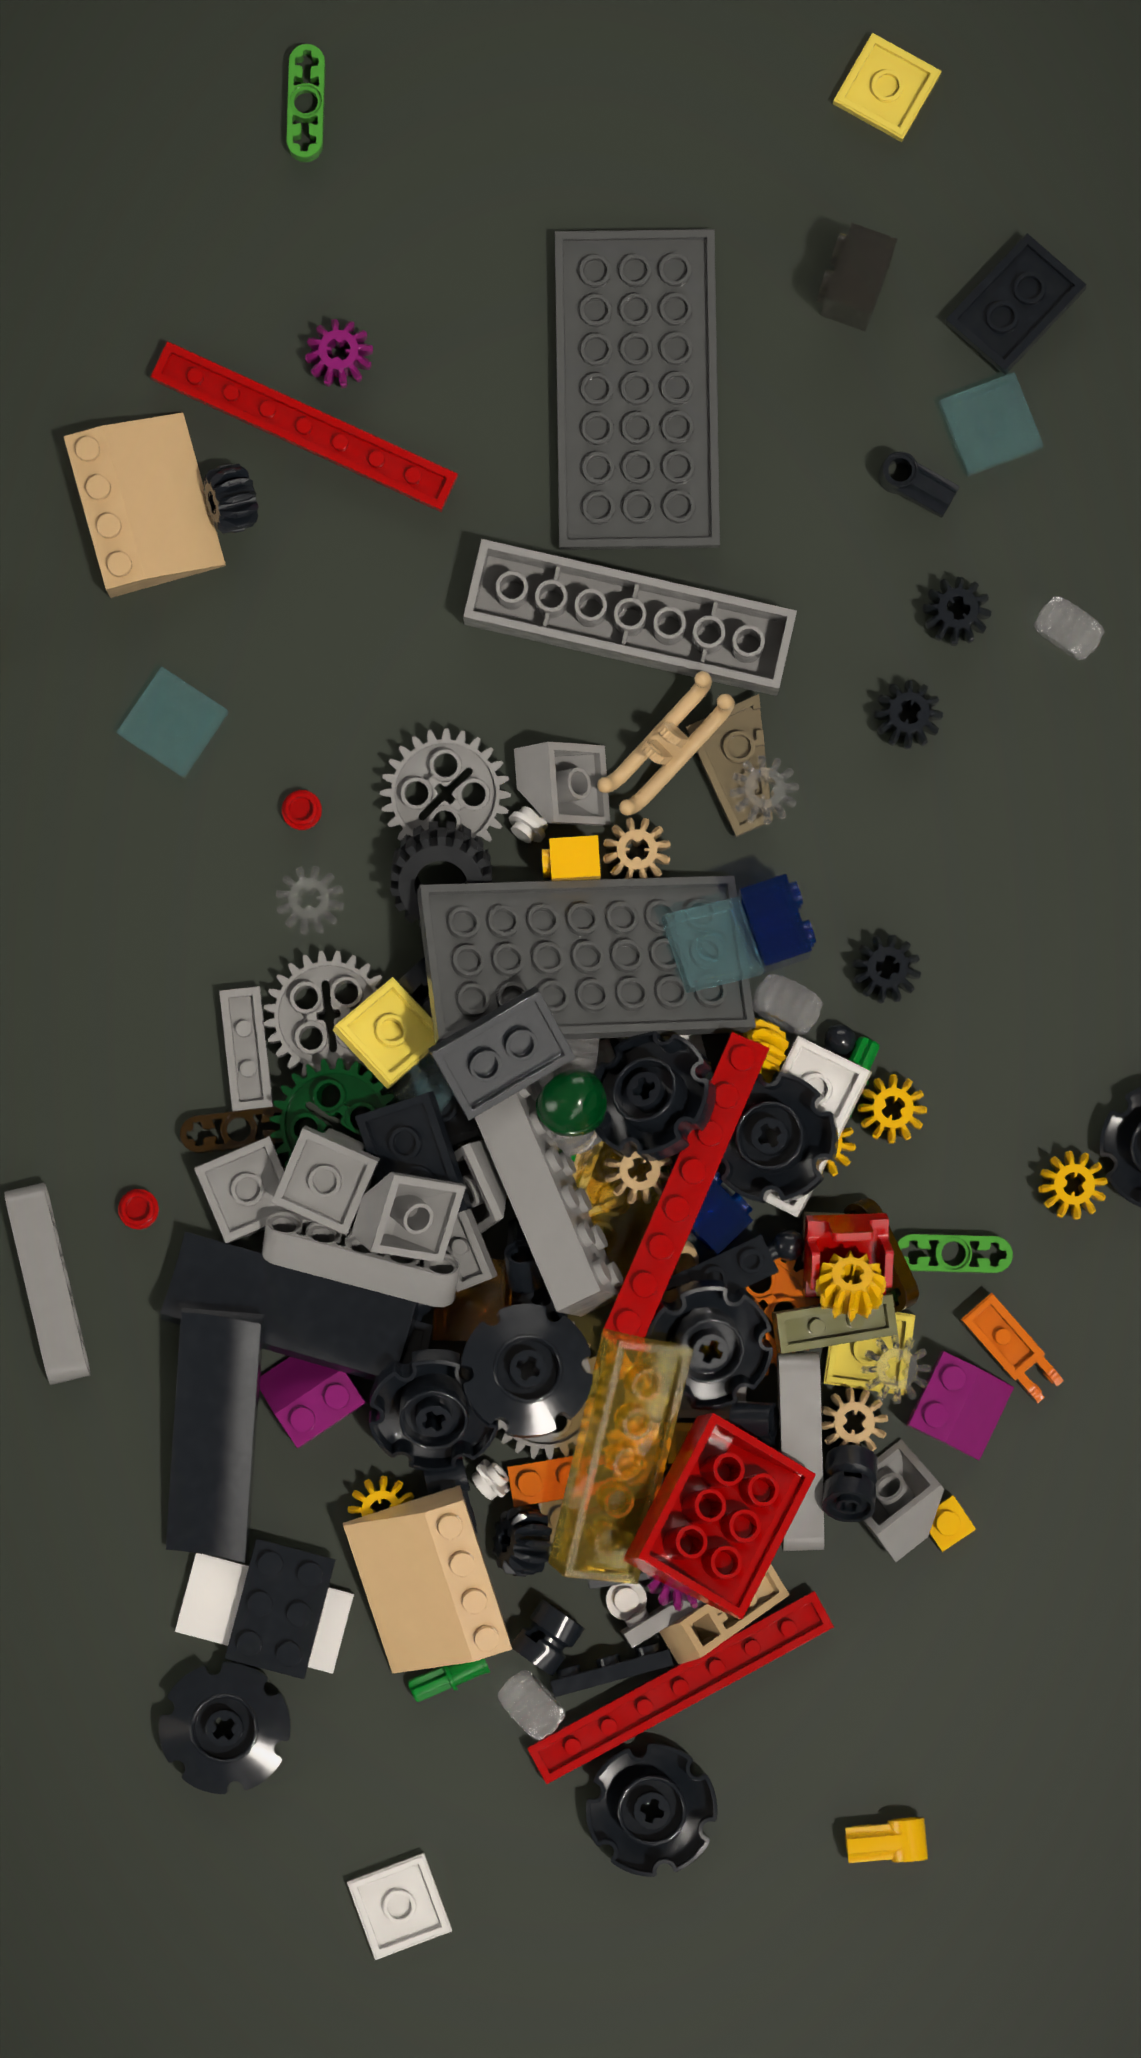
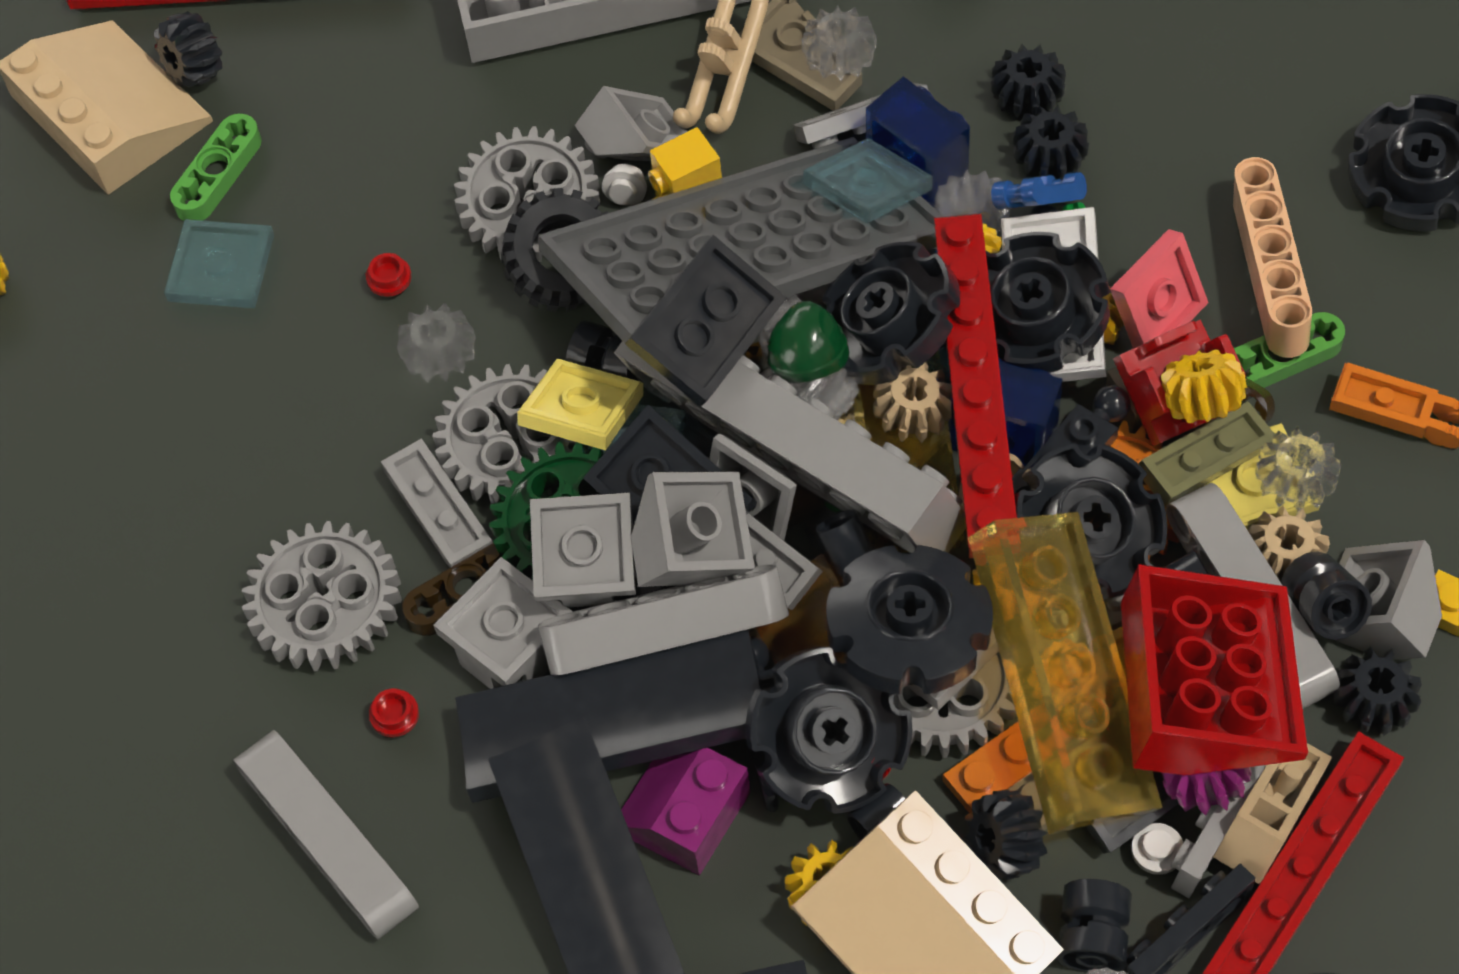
camera: 20 degrees left, 25 degrees down
(117, 1048) = (348, 620): none -> light grey gear
(176, 630) = (215, 186): none -> bright green beam
(491, 1480) = (935, 793): white plate -> none
(636, 837) = (745, 148): tan gear -> none
(752, 857) = (824, 128): none -> light grey plate
(843, 1025) = (1039, 191): none -> blue plate
(859, 1575) = (1374, 708): none -> black gear
(882, 1165) = (1159, 290): none -> coral plate
(904, 1114) = (1125, 245): yellow gear -> none
(915, 893) = (1028, 80): none -> black gear
(960, 1405) = (1383, 481): magenta slope -> none
(995, 1154) = (1272, 257): none -> light nougat beam
(1086, 1188) = (1357, 236): yellow gear -> none

